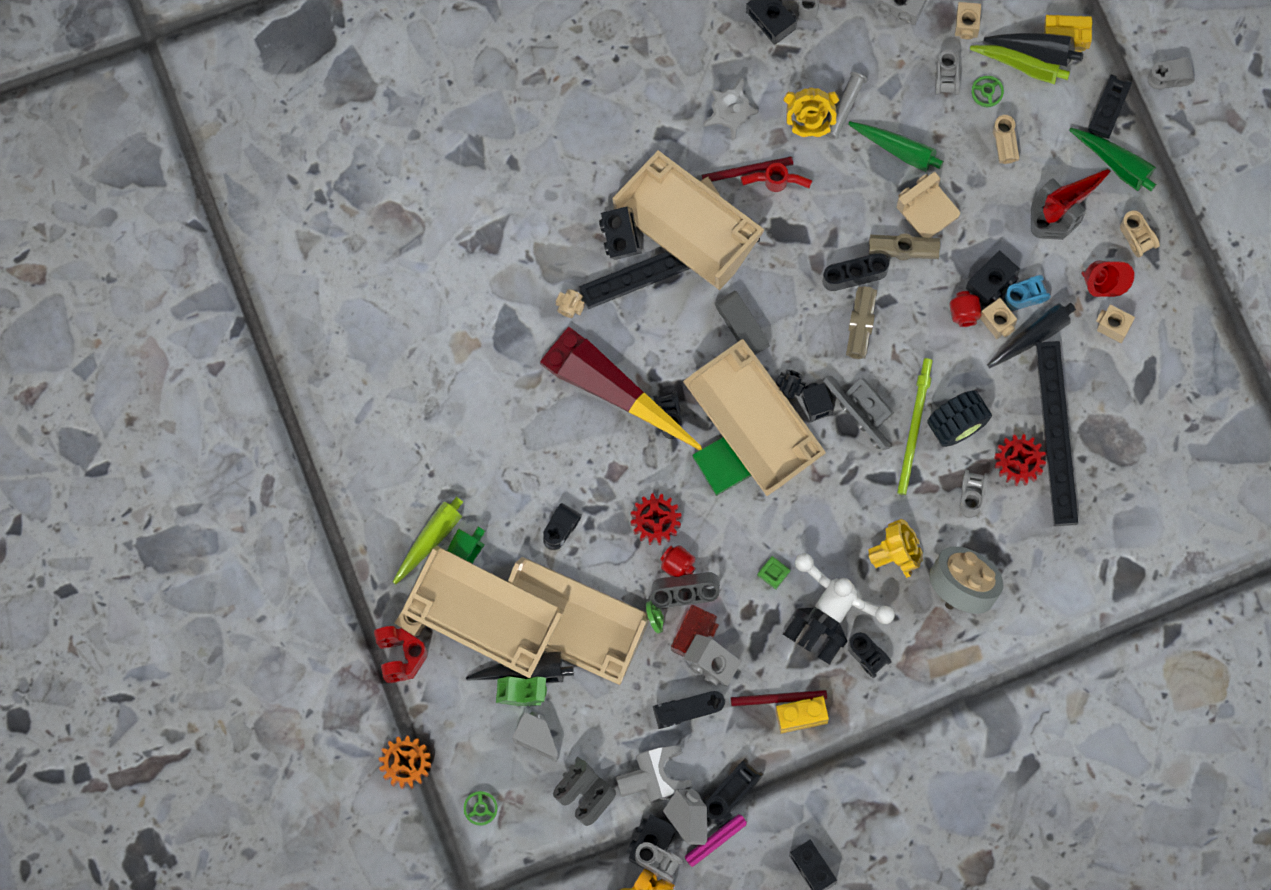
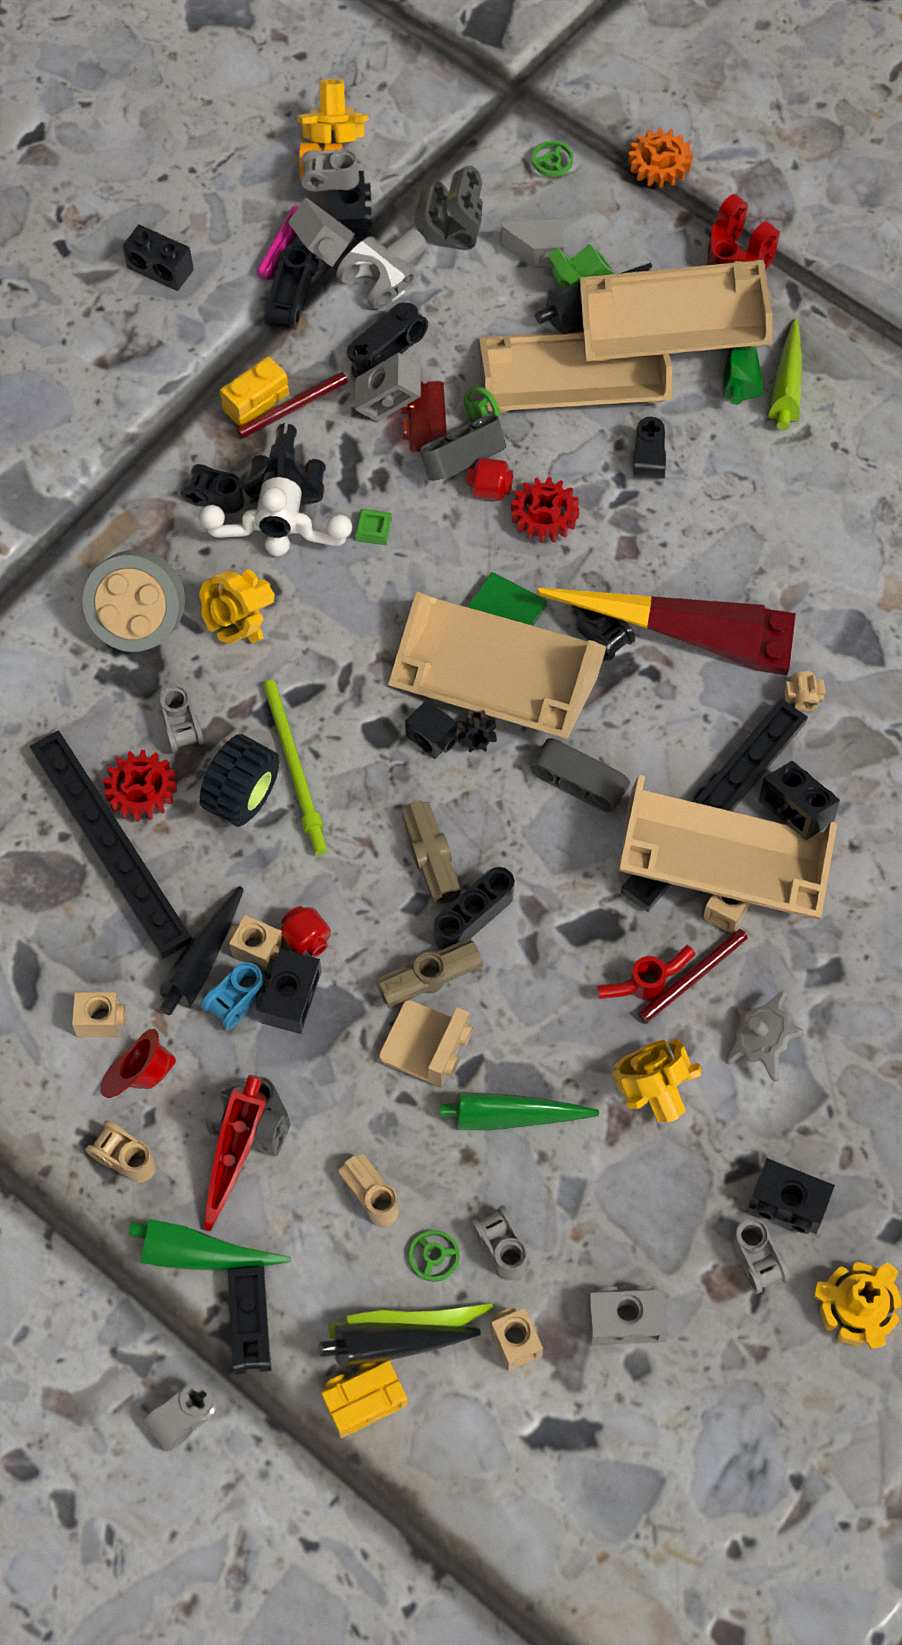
camera: 150 degrees right, 10 degrees down
(846, 103) = (616, 1131): light grey pin -> none
(865, 406) = (372, 749): dark grey bracket -> none

